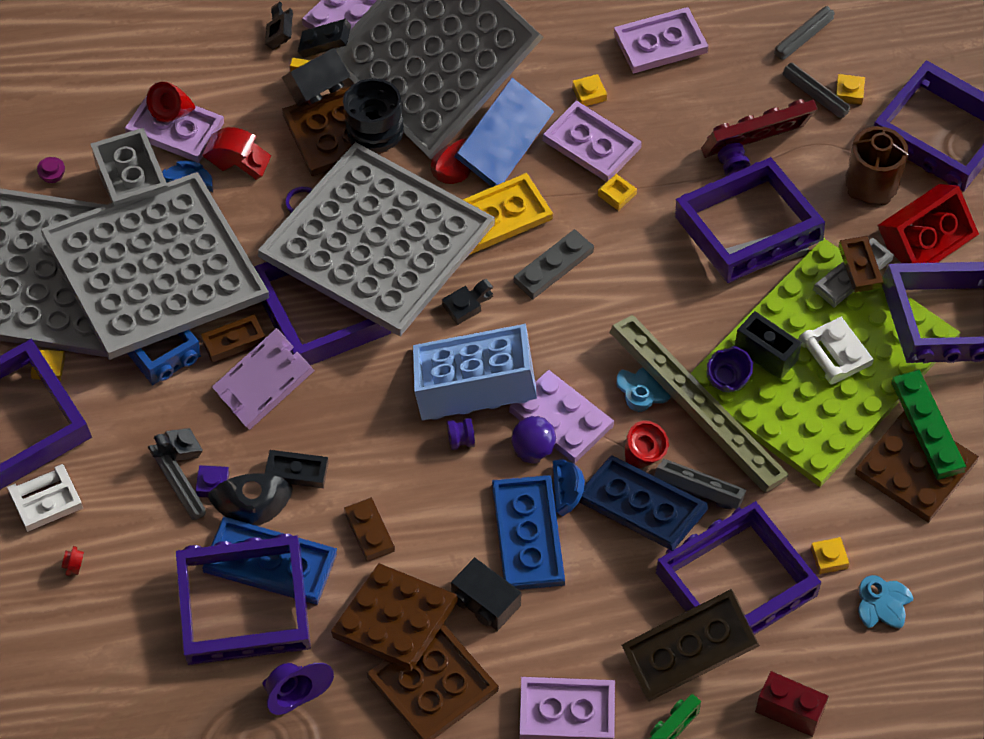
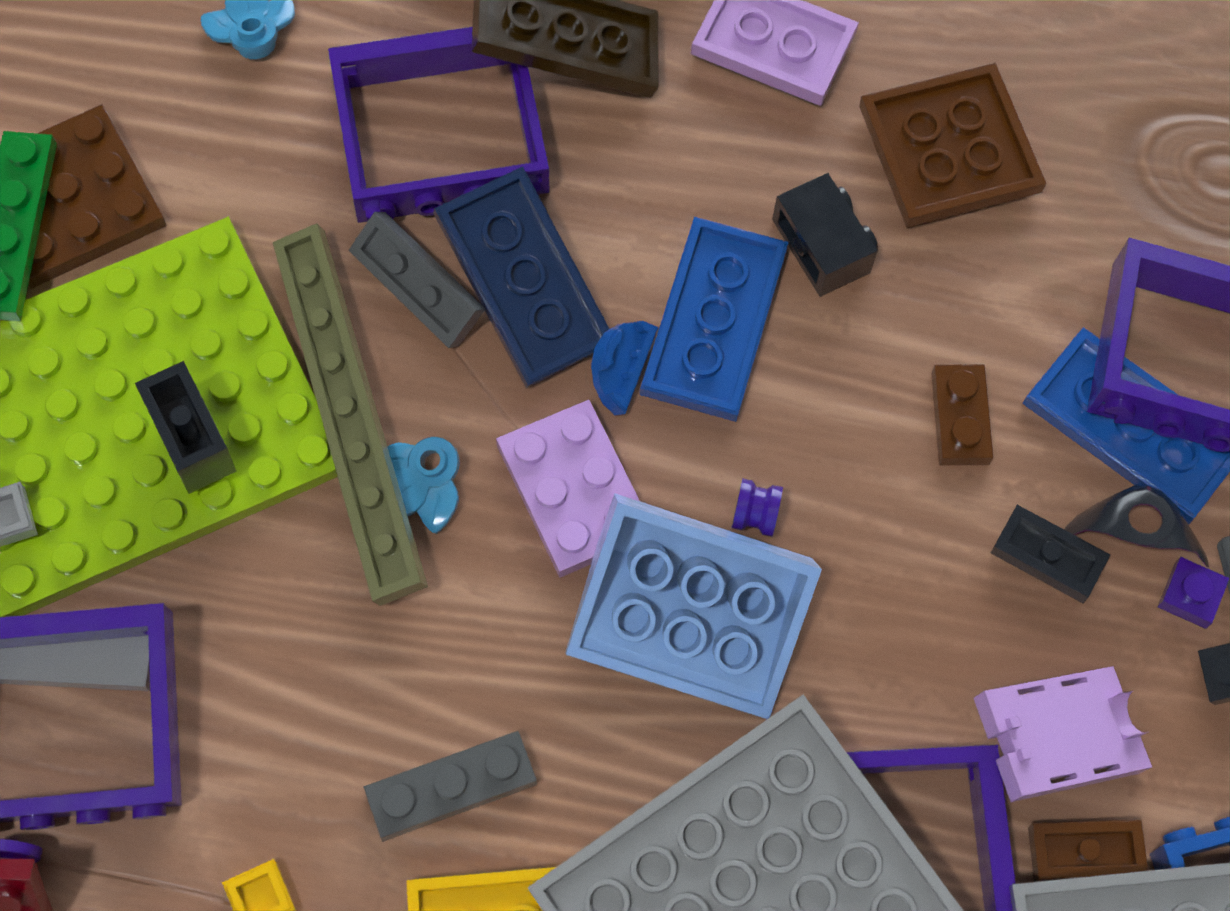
camera: 160 degrees left, 10 degrees up
(295, 685) = (1165, 208): dark purple piece -> none
(394, 616) = (976, 249): reddish brown plate -> none
(465, 303) = (646, 765): black plate -> none
(533, 439) = (644, 448): dark purple hair -> none
(645, 444) = (465, 372): red piece -> none
(729, 369) = (271, 416): dark purple hair -> none
(829, 555) = (282, 113): yellow plate -> none
(842, 345) = (57, 401): white plate -> none

